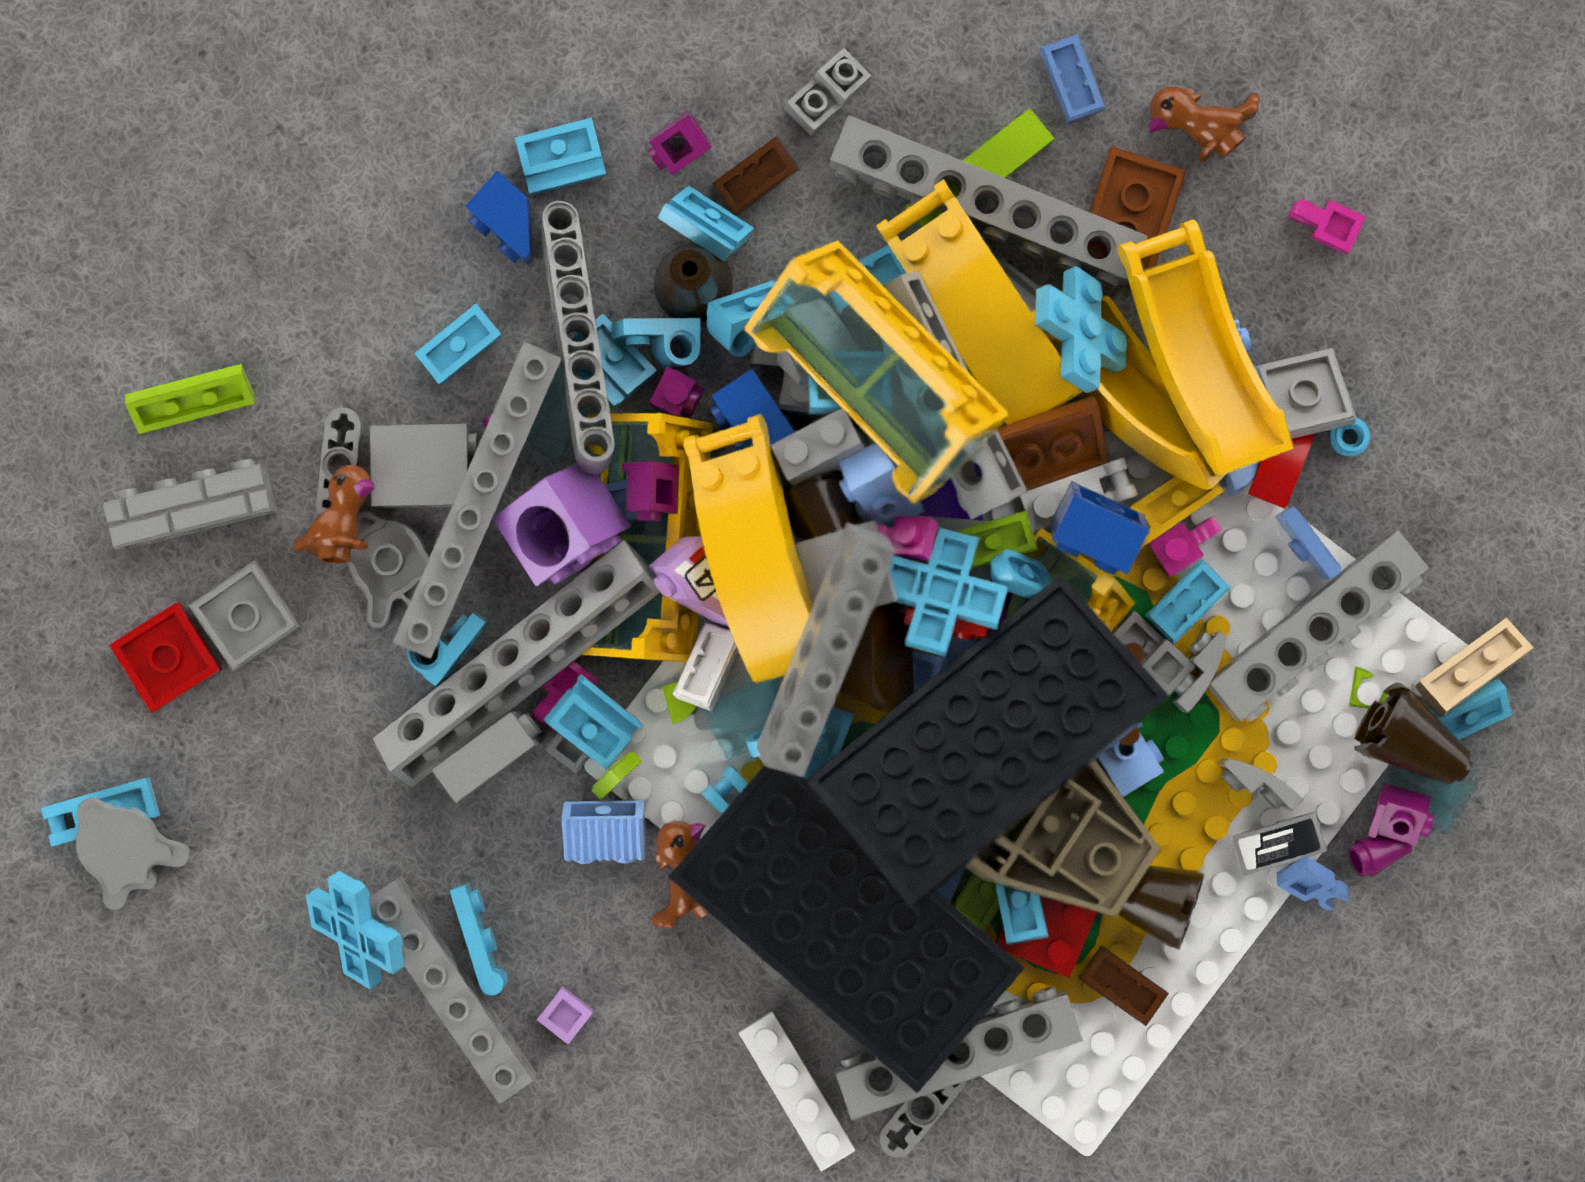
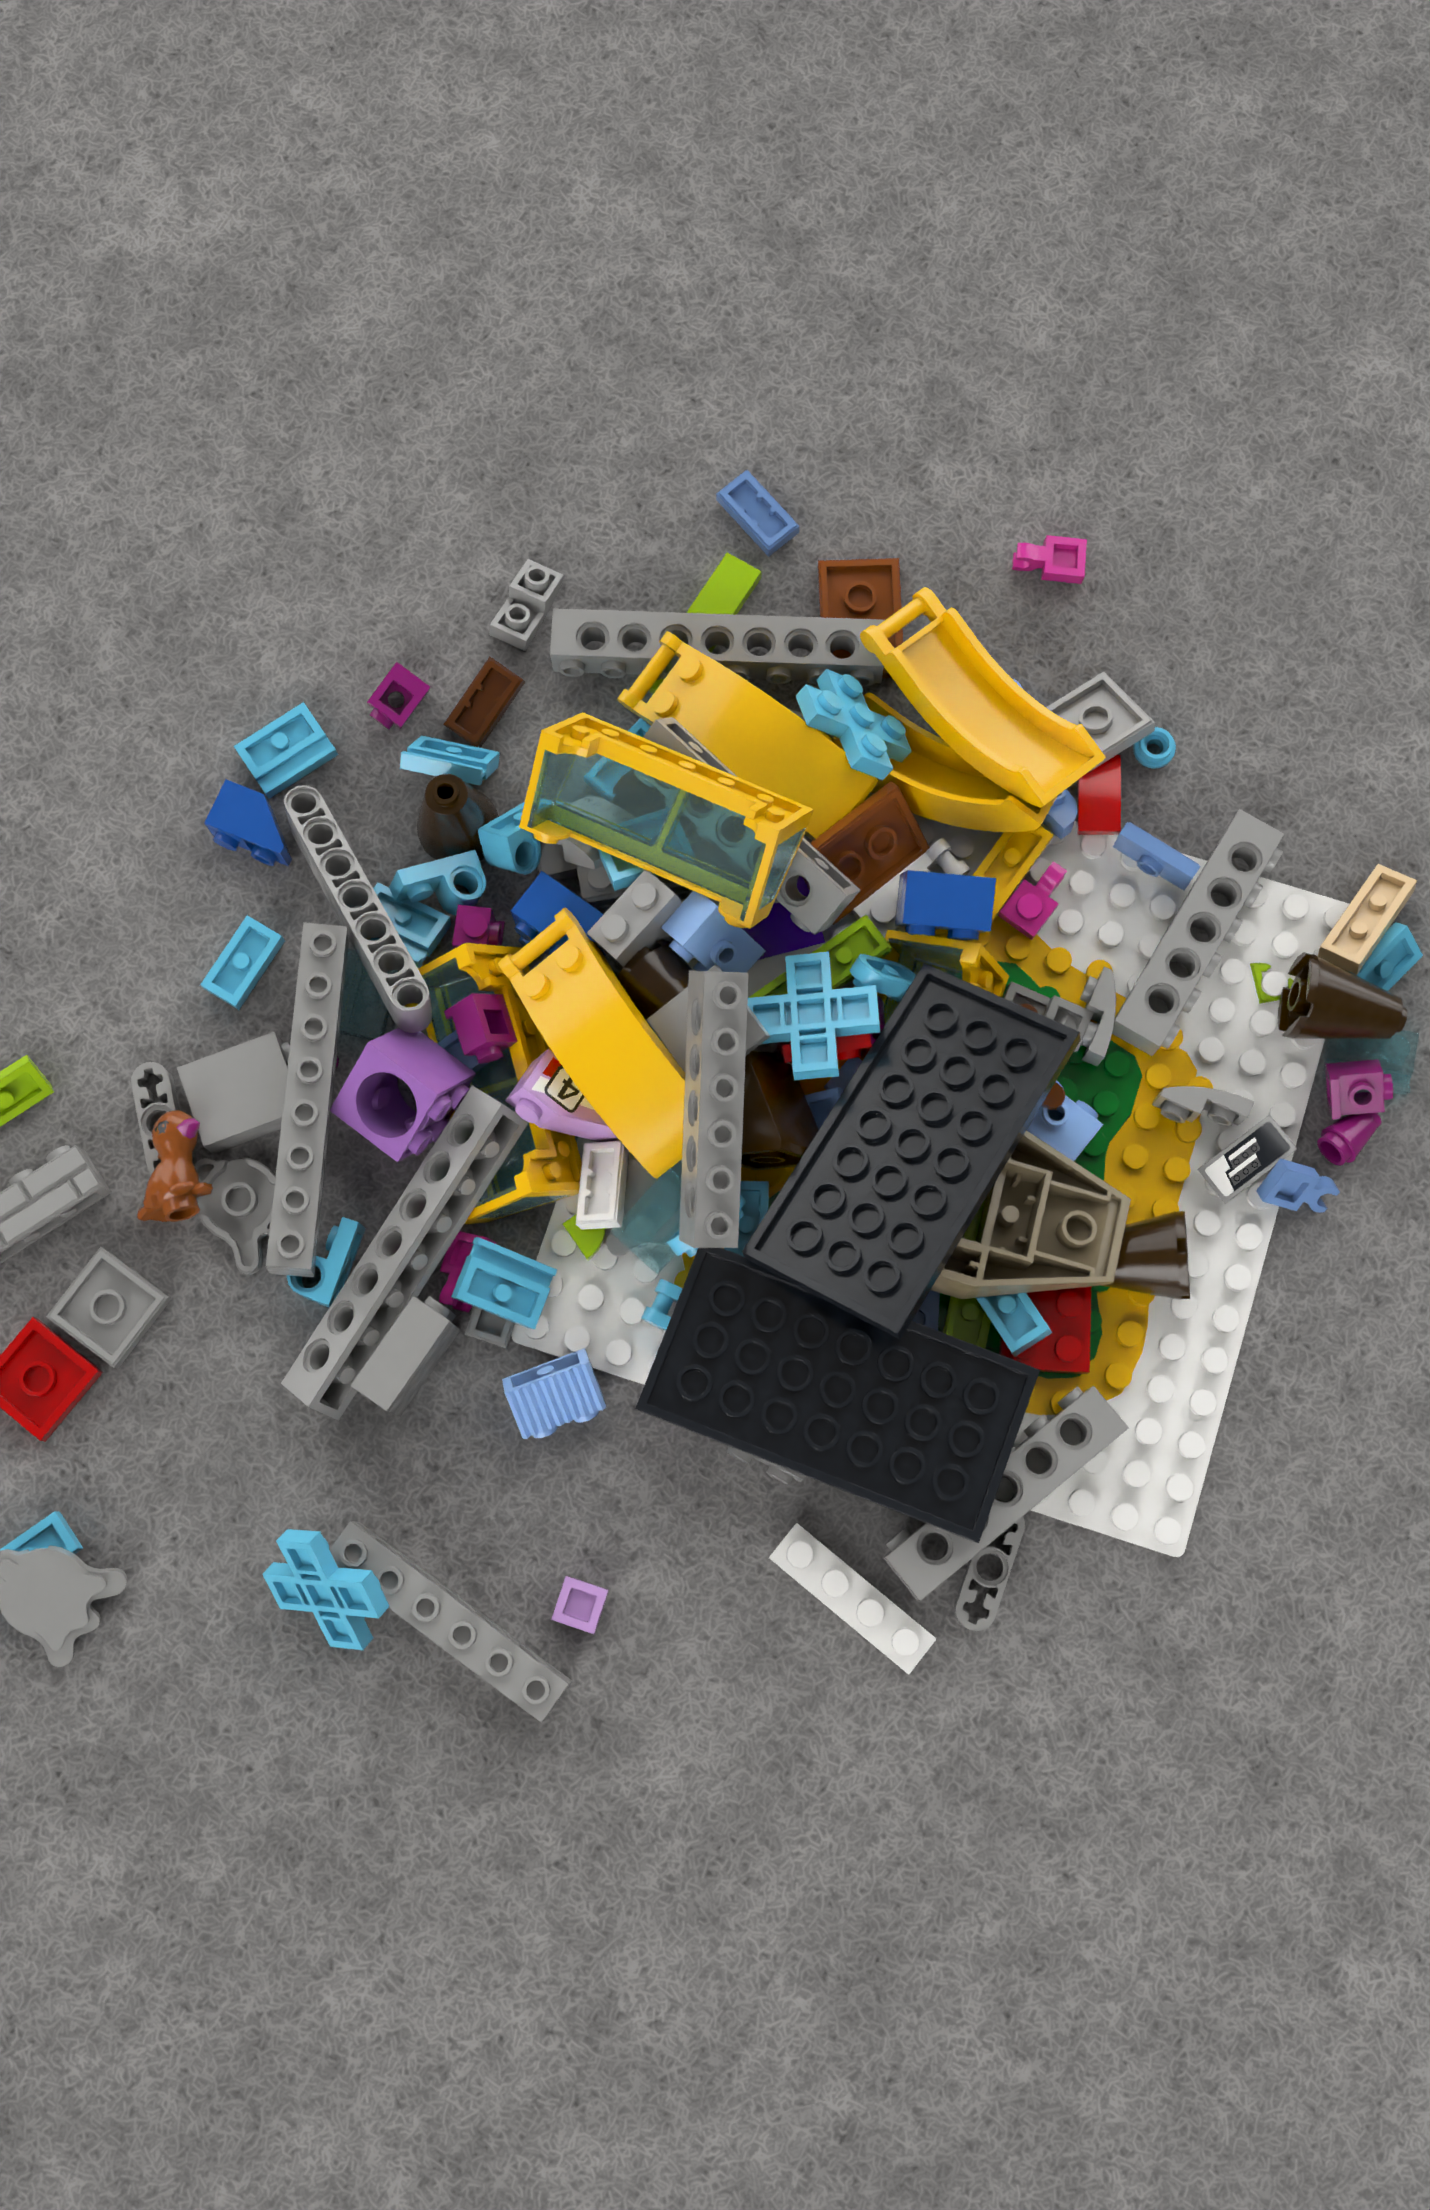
camera: 15 degrees left, 10 degrees down
(478, 940) = (462, 1557): medium azure plate -> none
(616, 774) = (546, 1331): lime tile -> none
(672, 845) = (628, 1380): dark orange animal -> none
(912, 536) = (765, 972): dark pink plate -> none
(1123, 985) = (1147, 1360): reddish brown plate -> none
(1187, 601) = (1059, 954): medium azure plate -> none
(1210, 127) = (906, 509): dark orange animal -> none

